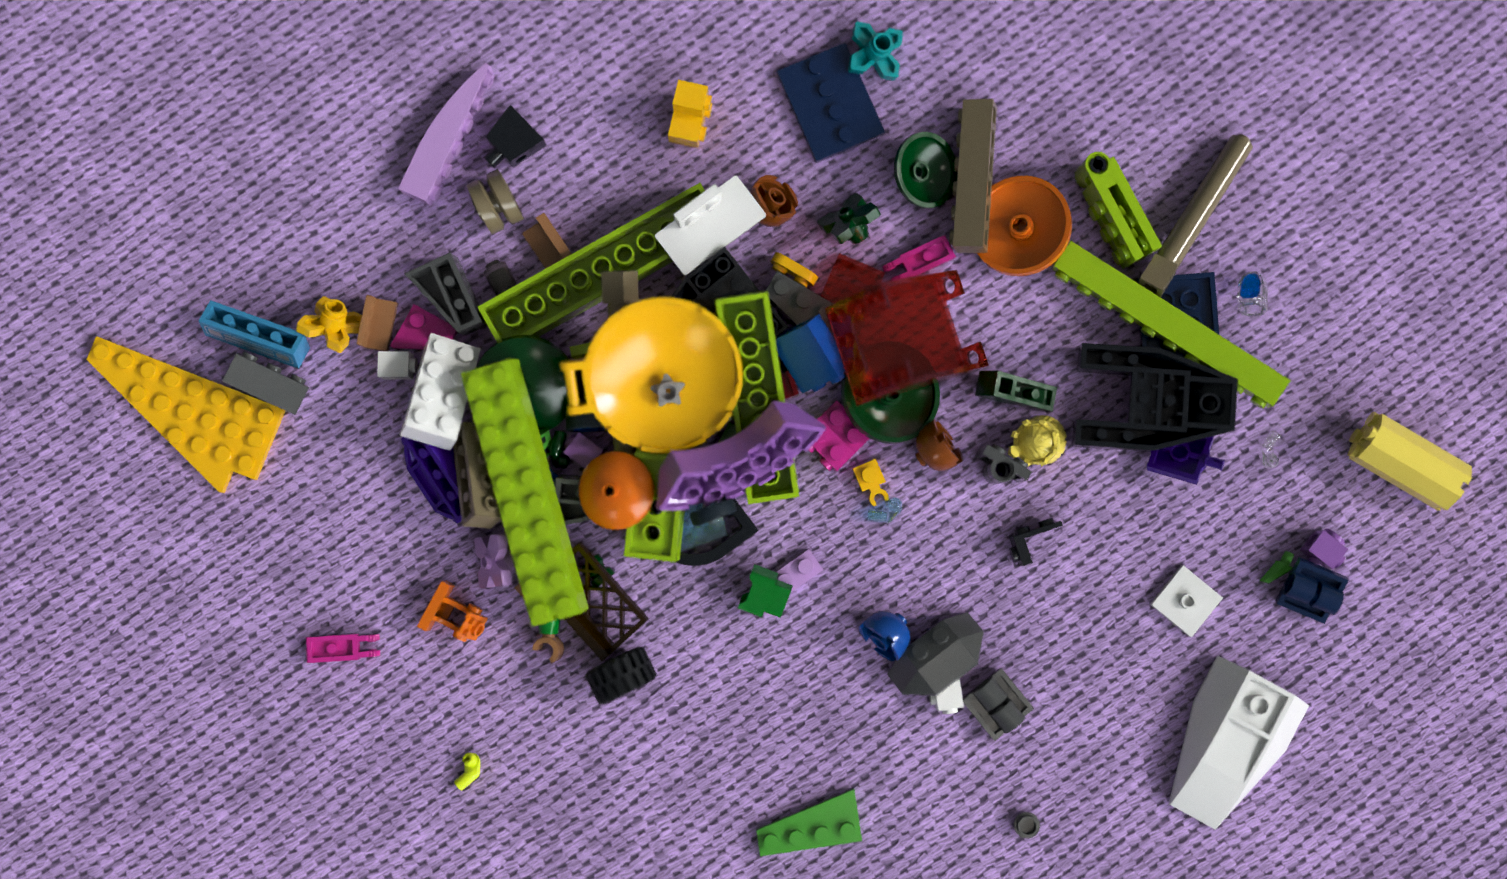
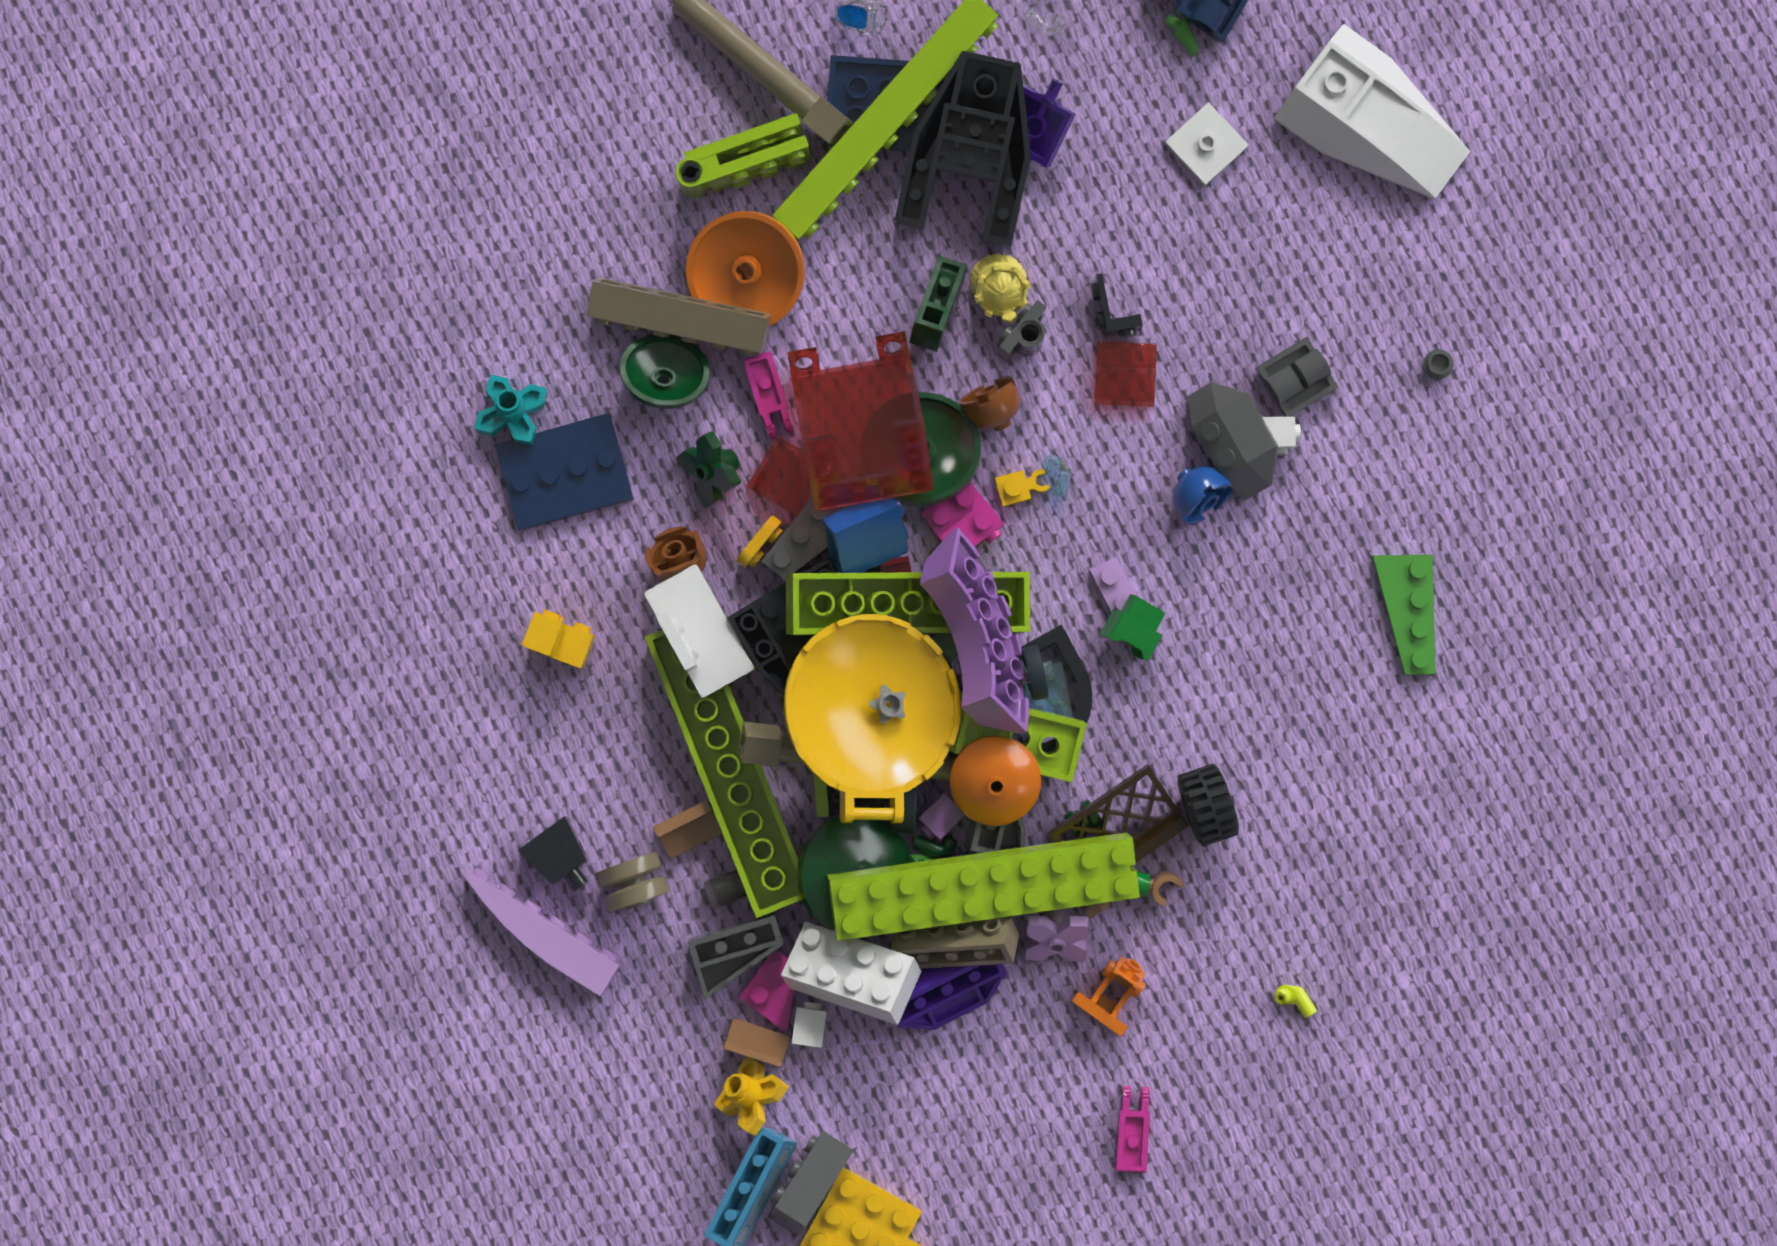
camera: 75 degrees left, 0 degrees up
(979, 557) = (1125, 373): none -> clear red slope

